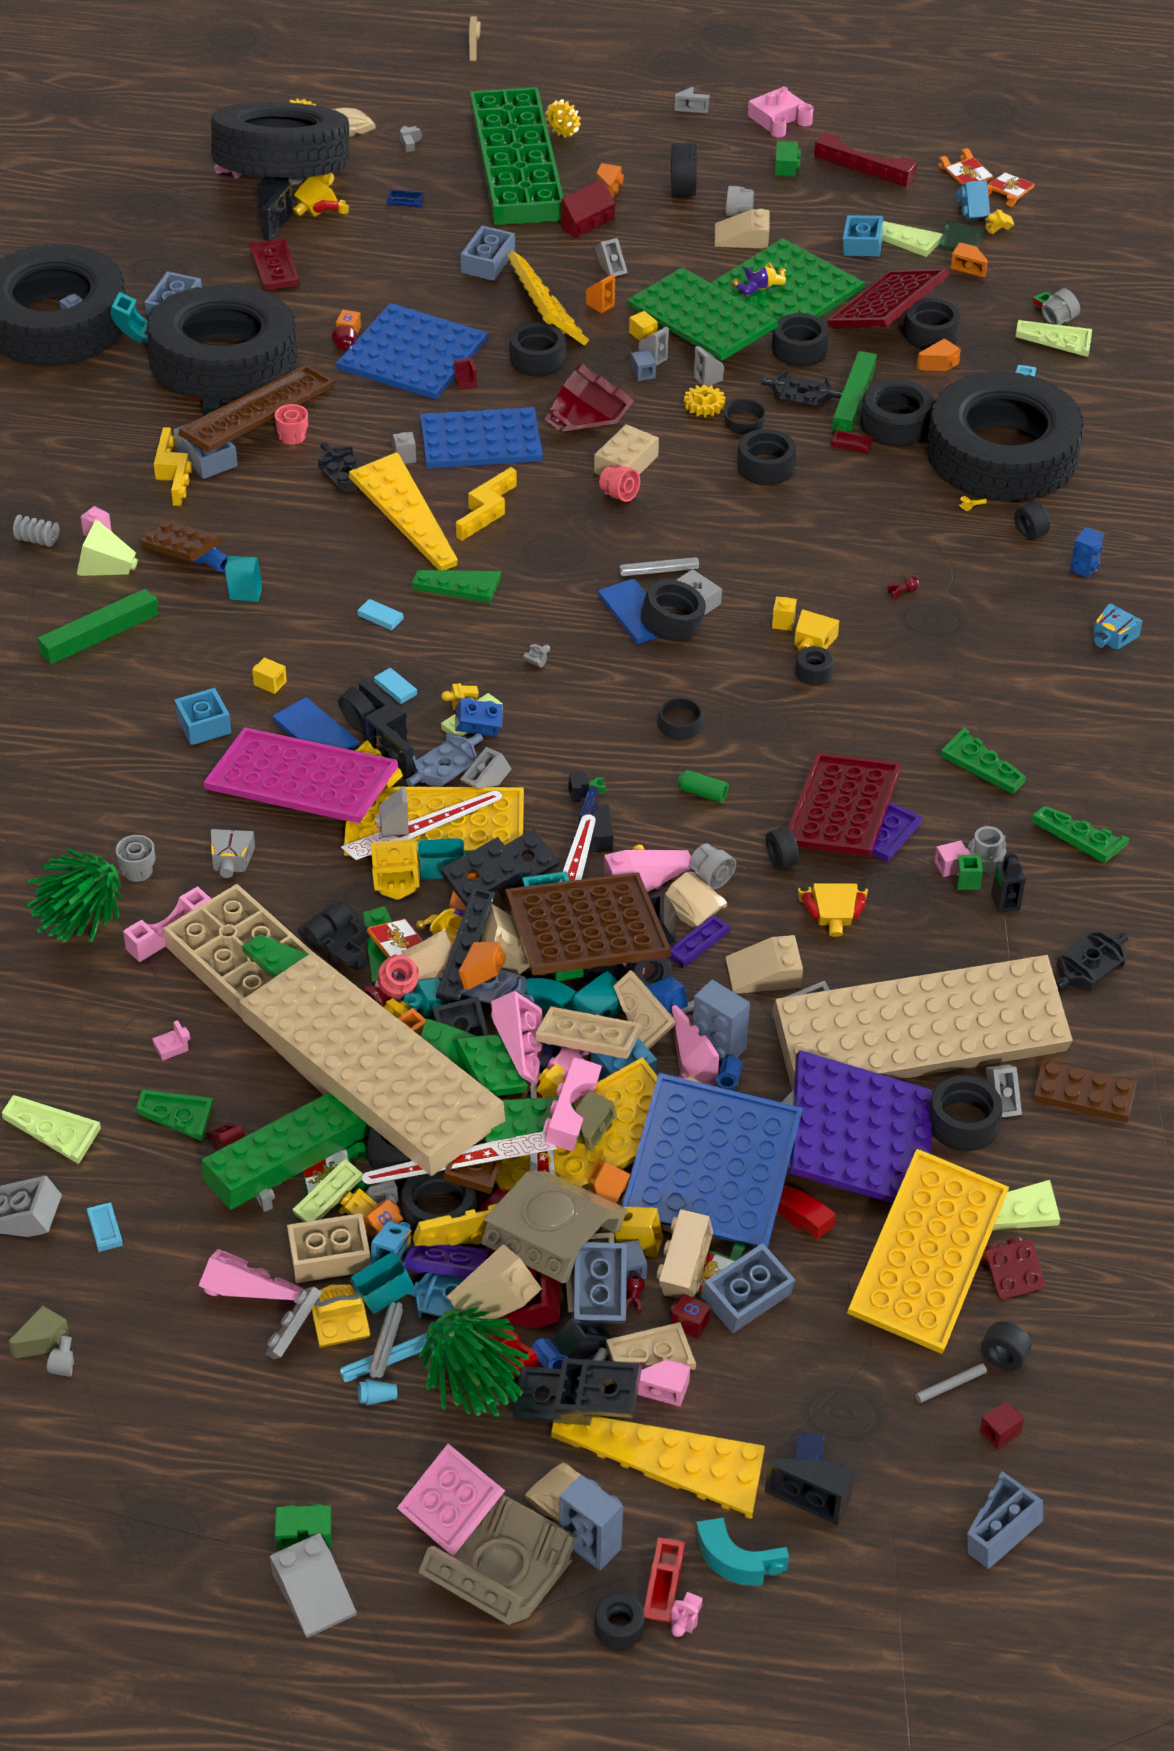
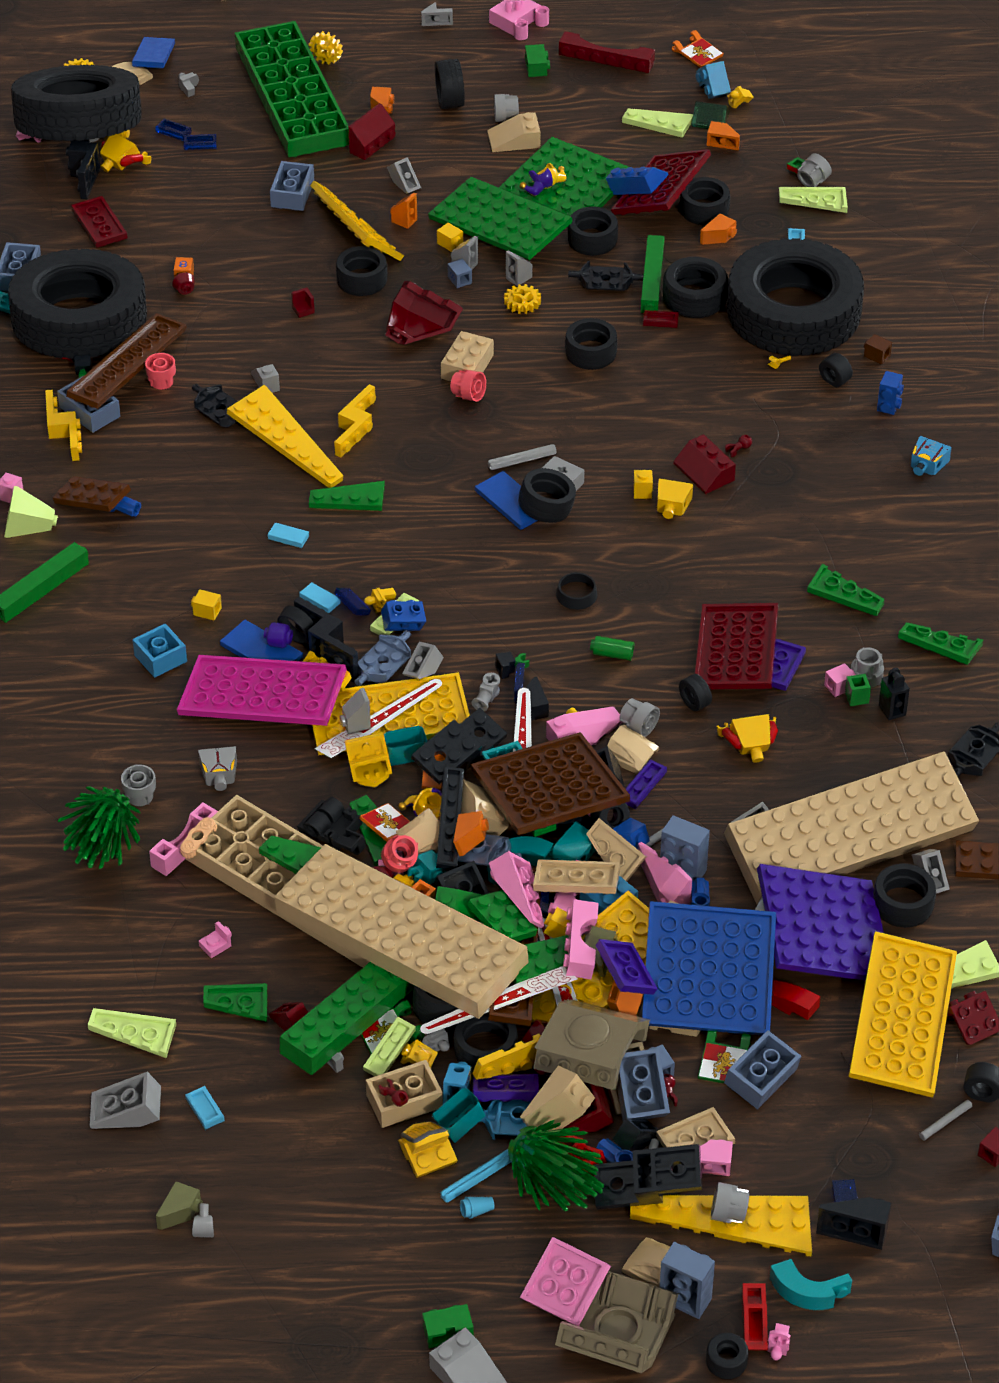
camera: 10 degrees left, 0 degrees up
(169, 931) = (189, 845): none -> light nougat piece
(230, 1276) = (326, 1132): bright pink wedge -> none
(243, 578) = (159, 520): teal piece -> none
(292, 1322) = (391, 1160): light grey plate -> none
(316, 1250) = (398, 1097): none -> dark red arm
(335, 718) = (278, 635): none -> dark purple head
(379, 1215) = (440, 1060): orange brick -> none
(380, 181) = (173, 129): none -> clear blue tile
(381, 102) = (153, 52): none -> blue tile
(386, 1340) = (473, 1161): light grey axle -> none
(411, 350) = (247, 287): blue plate -> none
(429, 694) = (352, 601): none -> clear blue tile
(481, 437) = (332, 360): blue plate -> none
(537, 655) = (437, 552): light grey piece -> none
(551, 813) = (488, 691): none -> light grey connector
(614, 1143) = (626, 967): none -> dark purple plate
(641, 1225) = (662, 1031): yellow torso -> none
(666, 1439) = (729, 1203): none -> light grey piece
(685, 1254) = (705, 1051): tan brick -> none
(691, 1314) = (720, 1098): dark red brick -> none
(744, 405) = (561, 298): black tyre -> none
(766, 966) = (707, 796): tan slope -> none
(814, 665) = (680, 527): black tyre -> none
(859, 292) = (635, 180): none -> blue slope
(860, 602) = (705, 464): none -> dark red slope
(863, 235) = (624, 125): dark azure brick -> none
(1011, 187) = (742, 61): flag -> none
(1086, 504) = (877, 349): none -> reddish brown brick

